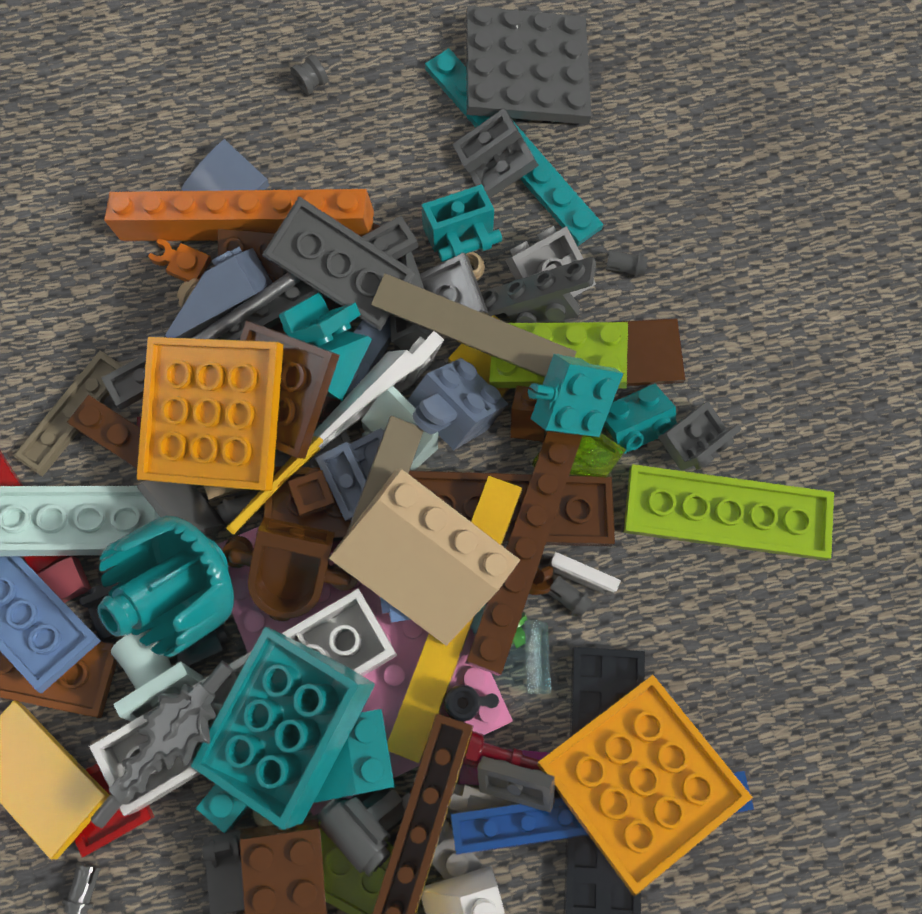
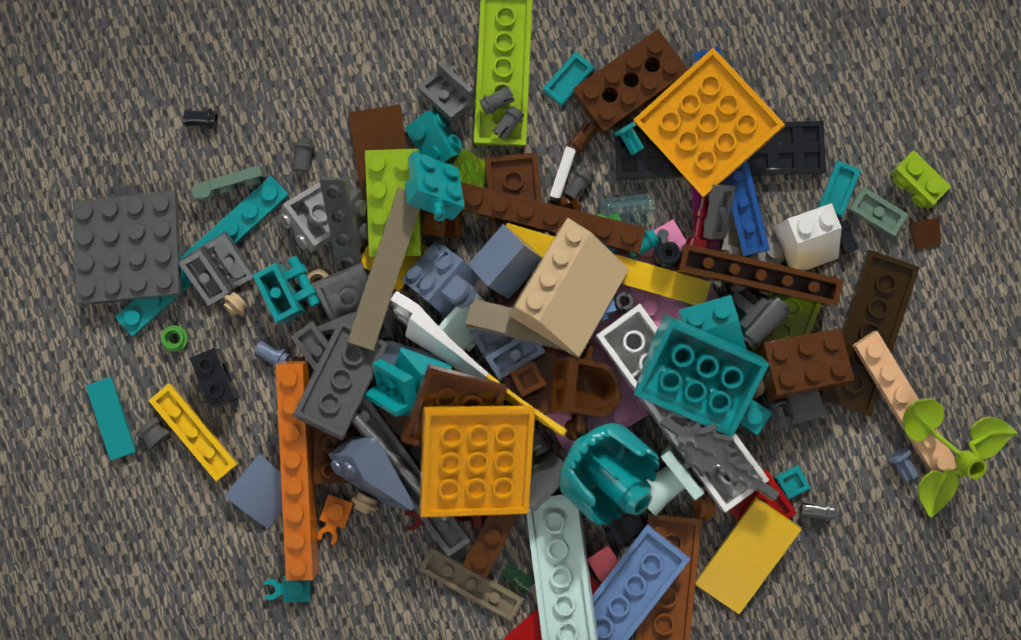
camera: 90 degrees left, 10 degrees up
(67, 468) = (517, 577): none -> clear green pin
(98, 205) = (291, 590): none -> teal plate
(109, 722) = (704, 507): none -> dark orange plate
(128, 856) = (792, 482): none -> teal tile
(305, 117) = (193, 432): none -> yellow plate
(333, 37) = (111, 418): none -> teal tile
(365, 141) = (214, 378): none -> black brick
(387, 206) = (270, 353): none -> sand blue pin
(403, 645) = (628, 298): none -> dark grey pin
(417, 99) = (166, 338): none -> bright green plate
(450, 172) = (235, 304): none -> tan plate
(469, 478) = (505, 262): none -> sand blue slope
(484, 681) = (649, 241): none -> teal pin
(597, 175) = (227, 183): none -> sand green hinge
(627, 668) = (630, 138): none -> teal piece
(631, 606) = (582, 137): none -> reddish brown pin
(657, 509) = (508, 123): none -> dark grey pin
(676, 163) = (201, 118): none -> black pin
(685, 495) = (496, 100): none -> dark grey pin
(712, 597) = (569, 76): none -> teal tile
(728, 679) = (630, 65): none -> reddish brown brick

